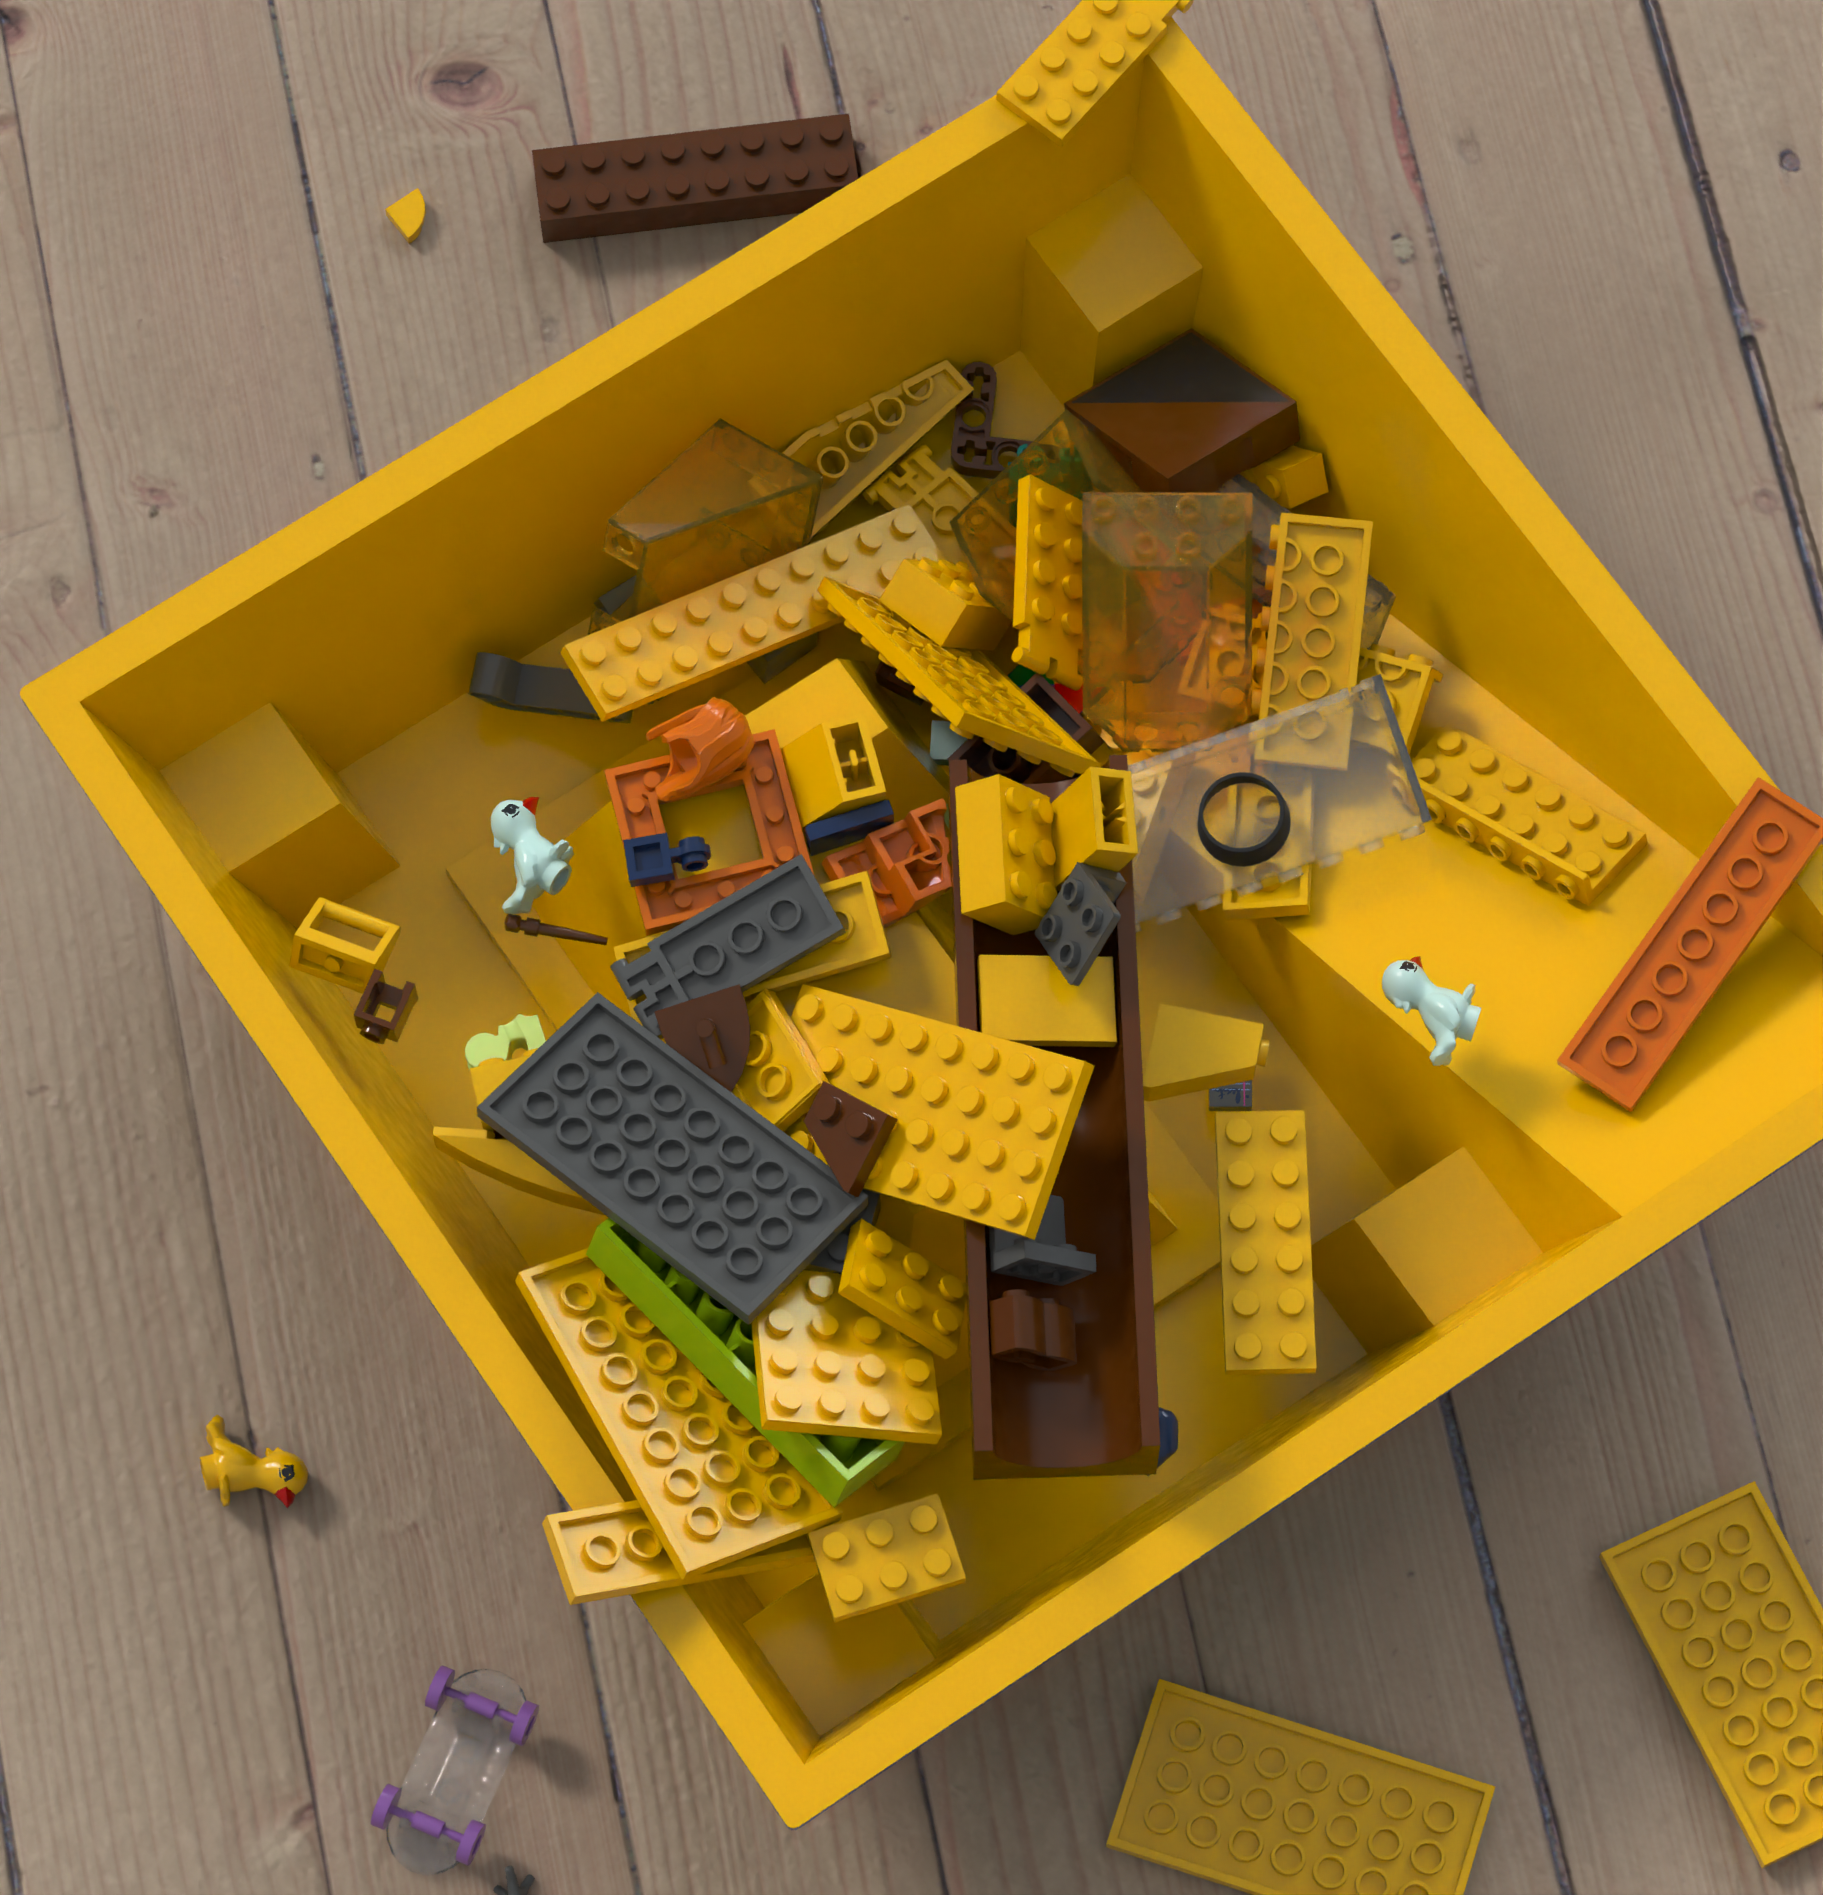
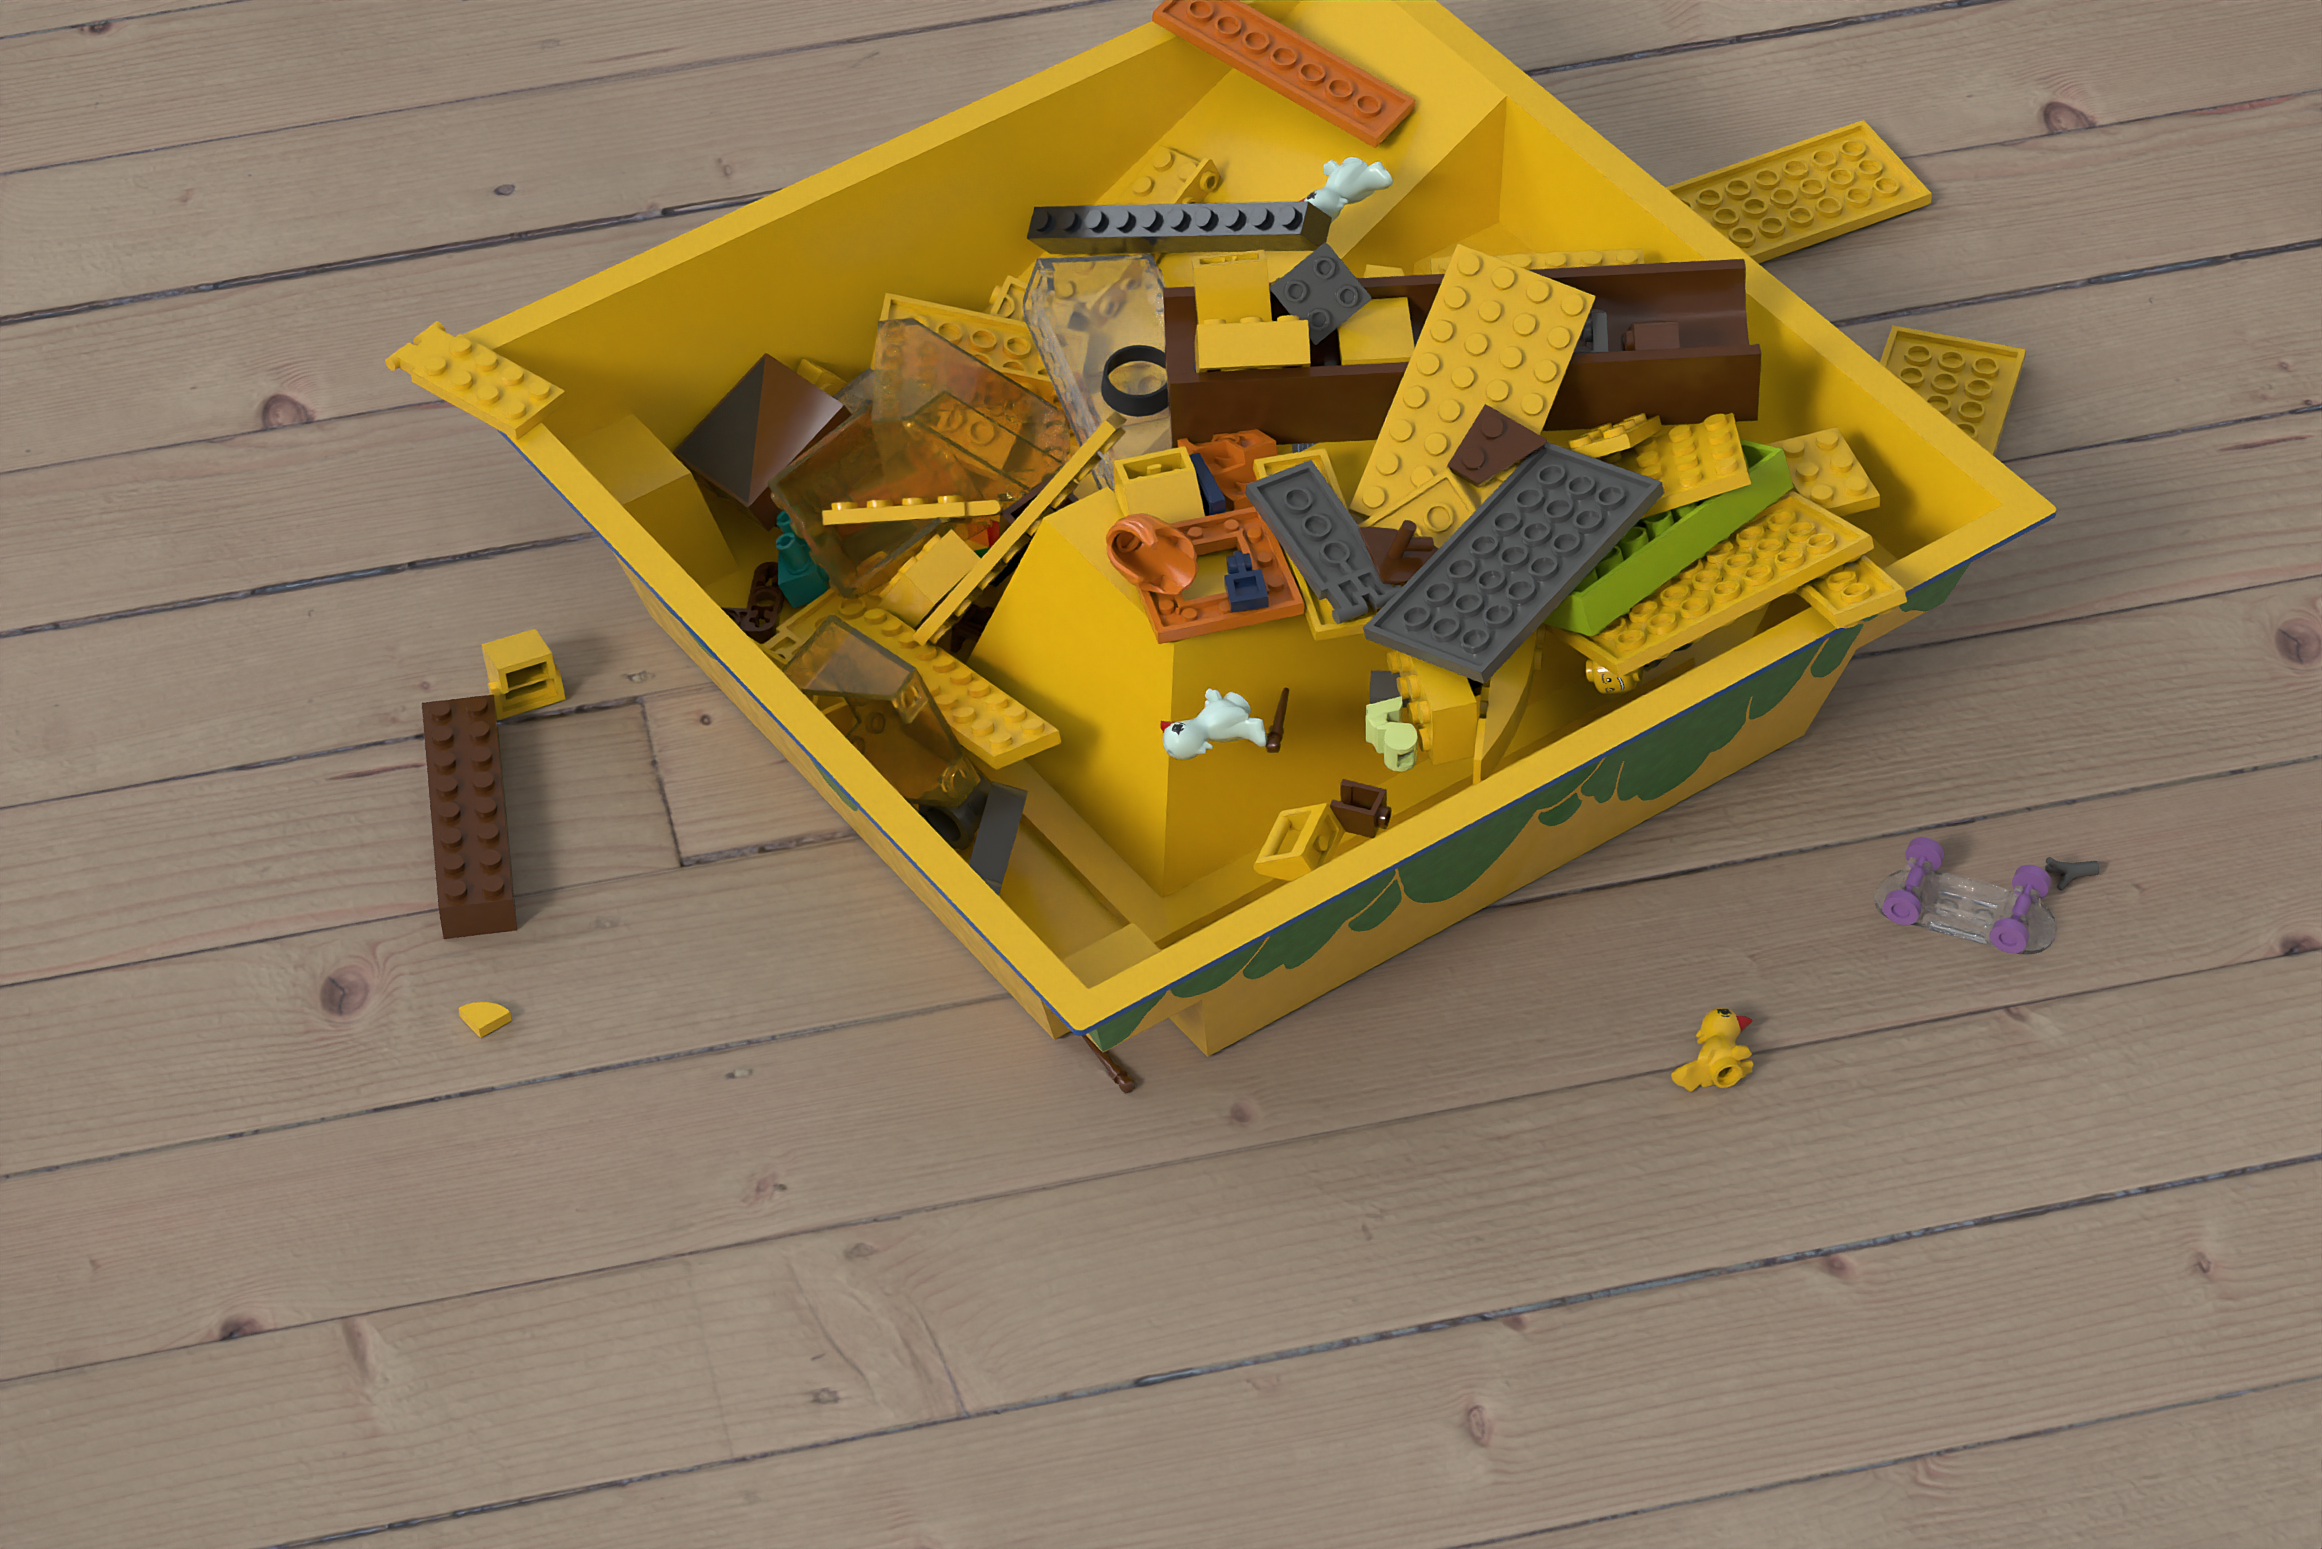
camera: 90 degrees left, 25 degrees down
(1429, 838) = (1179, 228): none -> brick

